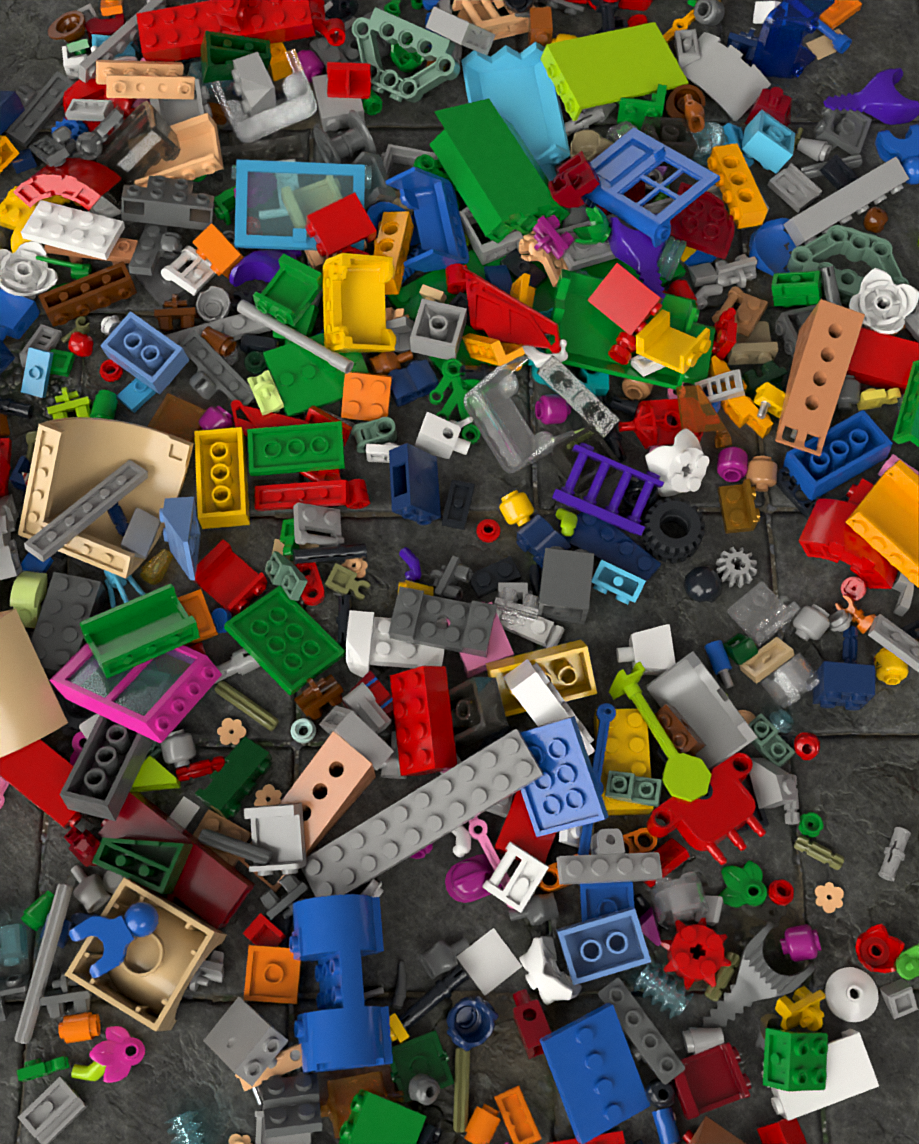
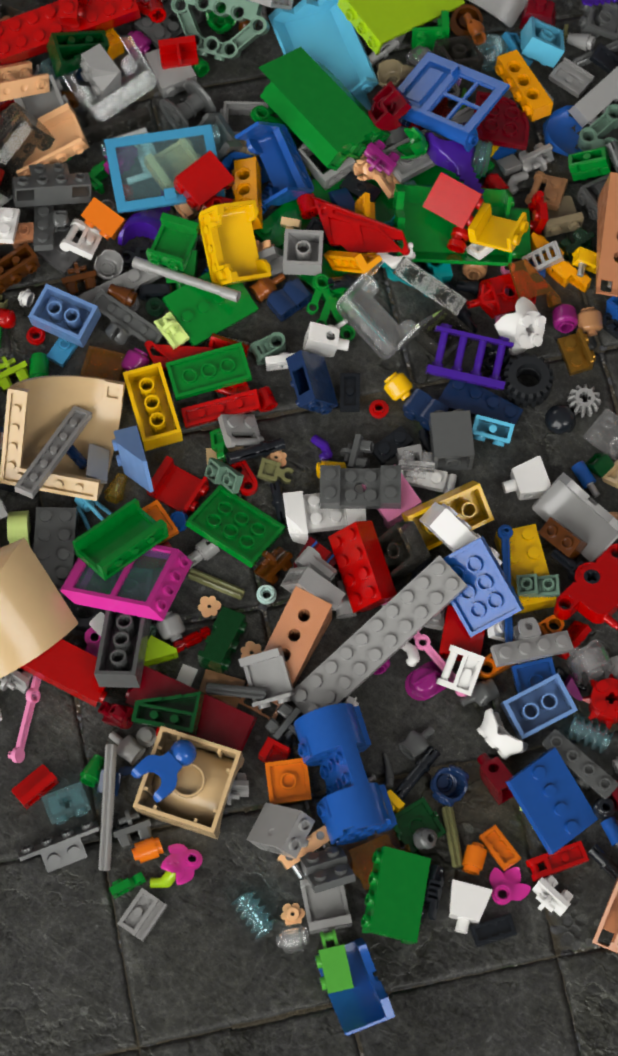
camera: 10 degrees left, 0 degrees up
(34, 564) = (16, 503): blue tile -> none
(366, 396) = (255, 318): orange plate -> none
(489, 961) = (452, 740): white sticker -> none
(552, 409) = (409, 300): magenta head -> none
(568, 521) = (442, 388): lime arm -> none
(683, 774) = (574, 567): lime piece -> none

